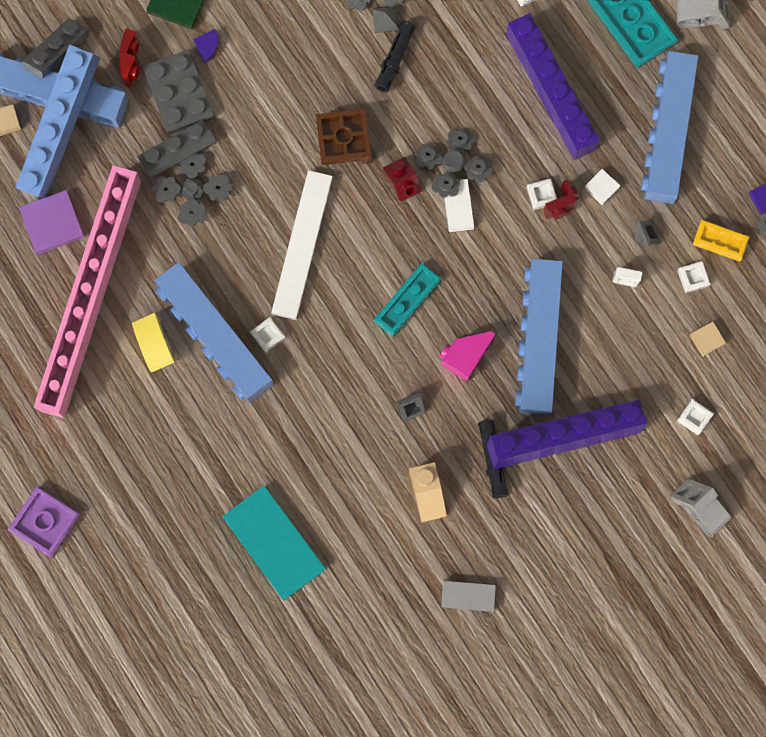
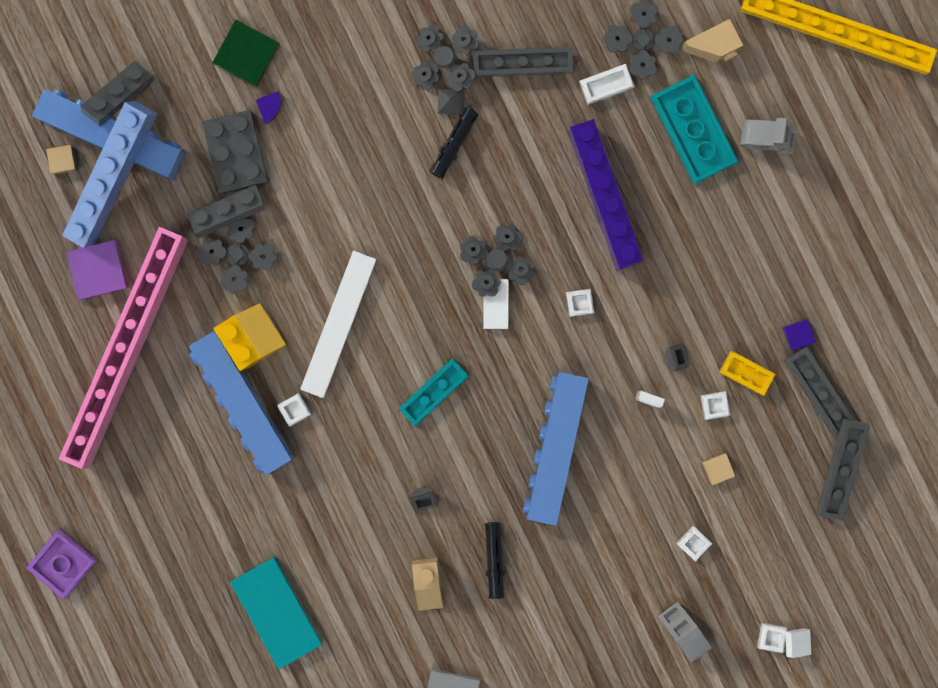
camera: 10 degrees right, 10 degrees up
(128, 63) = (187, 120): red slope -> none
(152, 342) = (181, 405): light yellow slope -> none
(214, 267) = (249, 337): none -> yellow slope
(343, 137) = (391, 221): reddish brown piece -> none
(403, 178) = (445, 270): dark red bracket -> none
(466, 354) = (482, 455): dark pink slope -> none
(559, 207) = (594, 321): dark red bracket -> none
(566, 434) = (567, 550): dark purple brick -> none
(602, 187) = (639, 303): white tile -> none
(670, 127) = (716, 251): medium blue brick -> none

